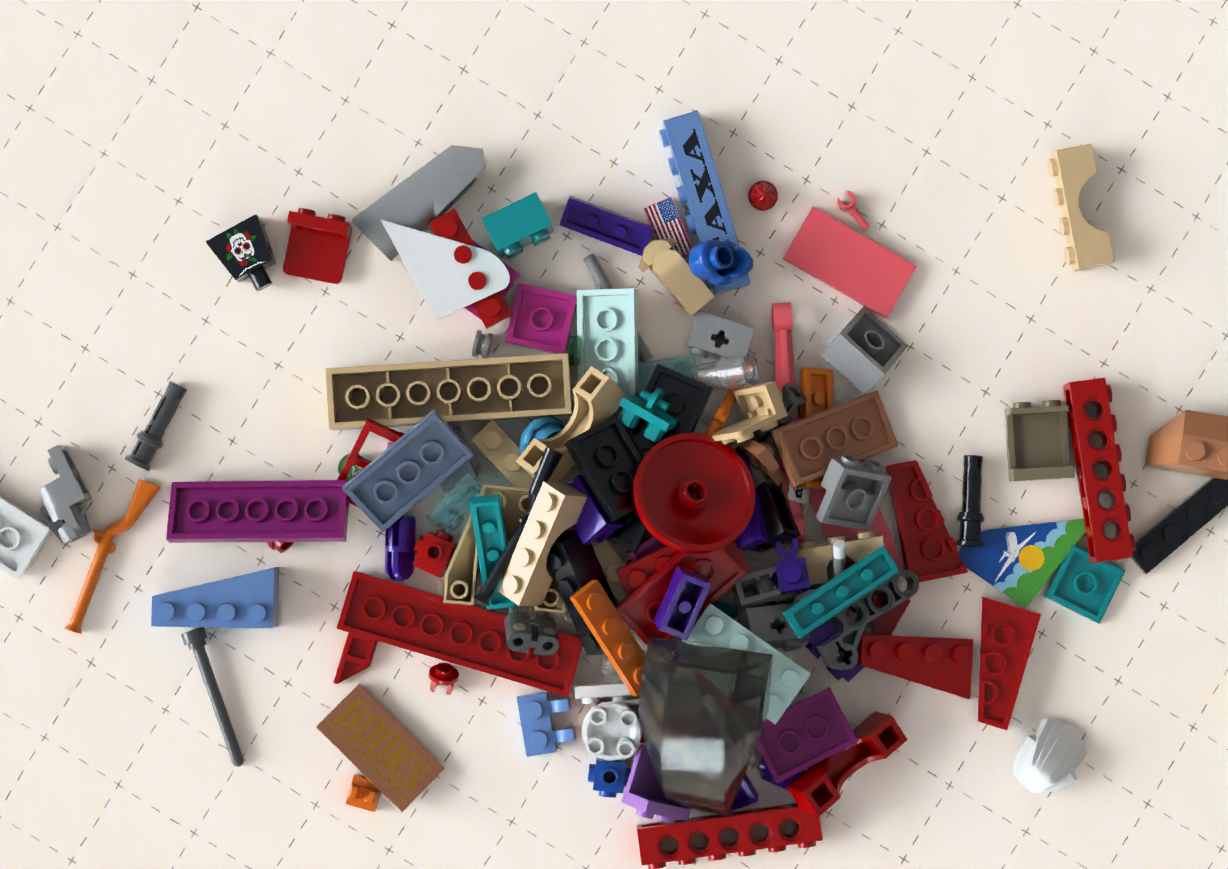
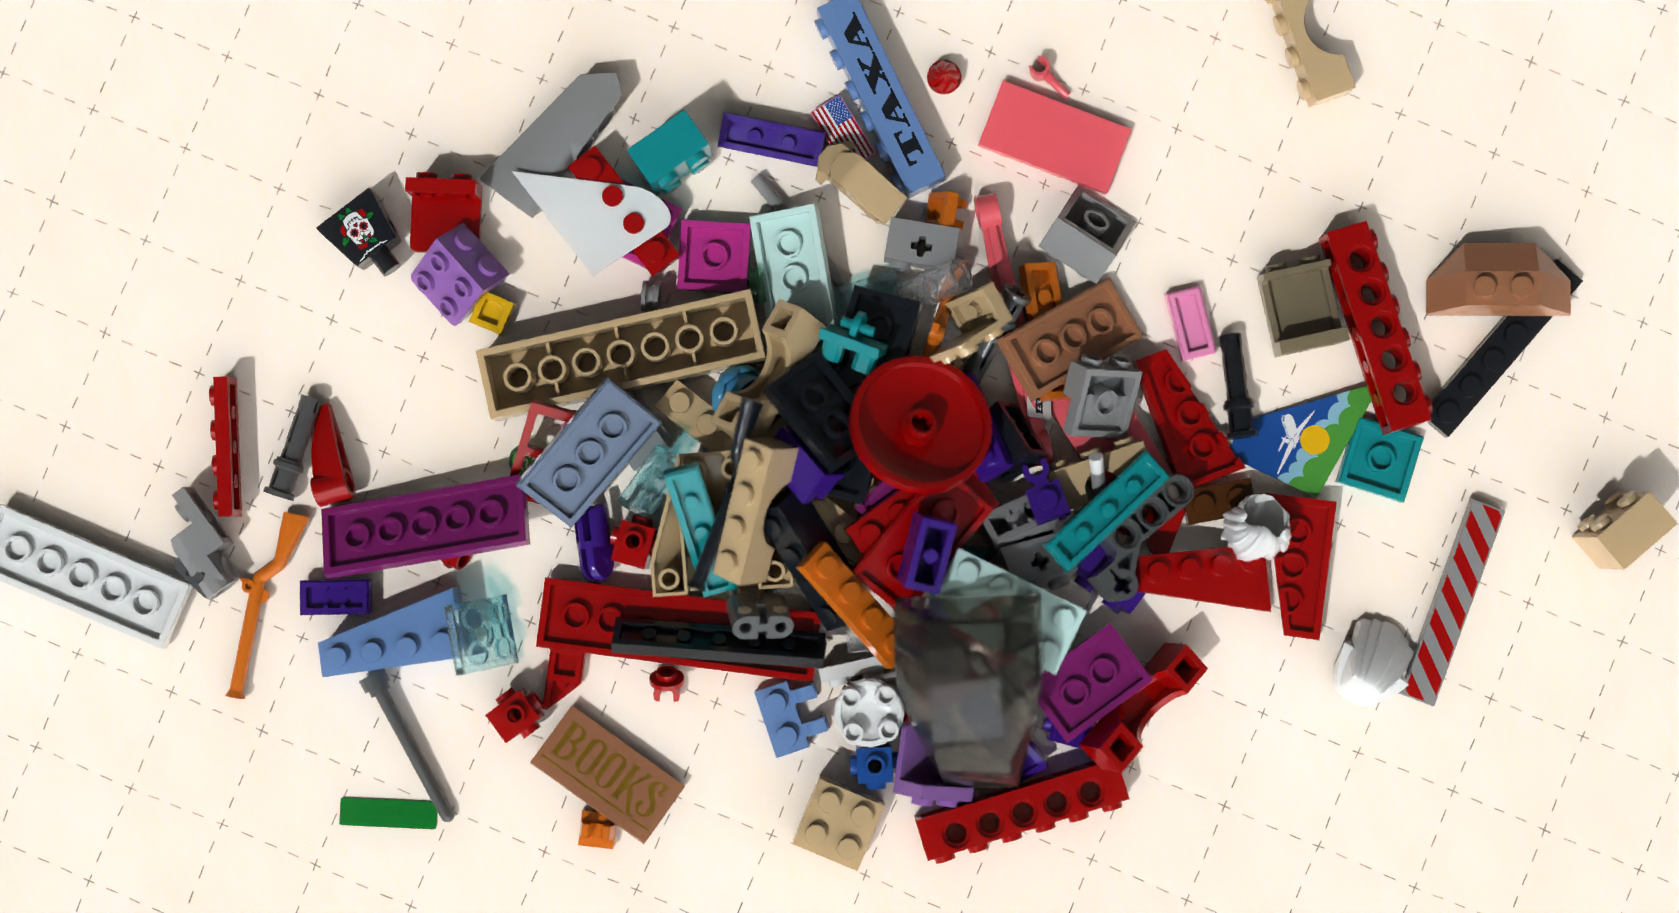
camera: 15 degrees left, 0 degrees up
(97, 428) = (225, 433): none -> red plate
(172, 559) = (336, 597): none -> dark purple plate
(185, 444) = (330, 466): none -> red piece
(187, 750) = (388, 813): none -> green sticker
(291, 611) = (481, 634): none -> clear light blue plate
(301, 688) = (504, 717): none -> red brick
(320, 299) = (457, 273): none -> medium lavender bracket
(344, 337) = (492, 313): none -> yellow plate
(490, 650) = (715, 643): none -> black plate
(571, 820) = (838, 822): none -> tan brick
(719, 261) = (906, 156): blue head -> none
(743, 309) = (943, 208): none -> orange tile
(762, 457) = (991, 373): nougat plate -> none
(940, 440) = (1190, 323): none -> bright pink tile
(942, 598) = (1213, 501): none -> reddish brown plate
(968, 626) = (1257, 528): none -> white hair
(1127, 715) = (1452, 601): none -> tile

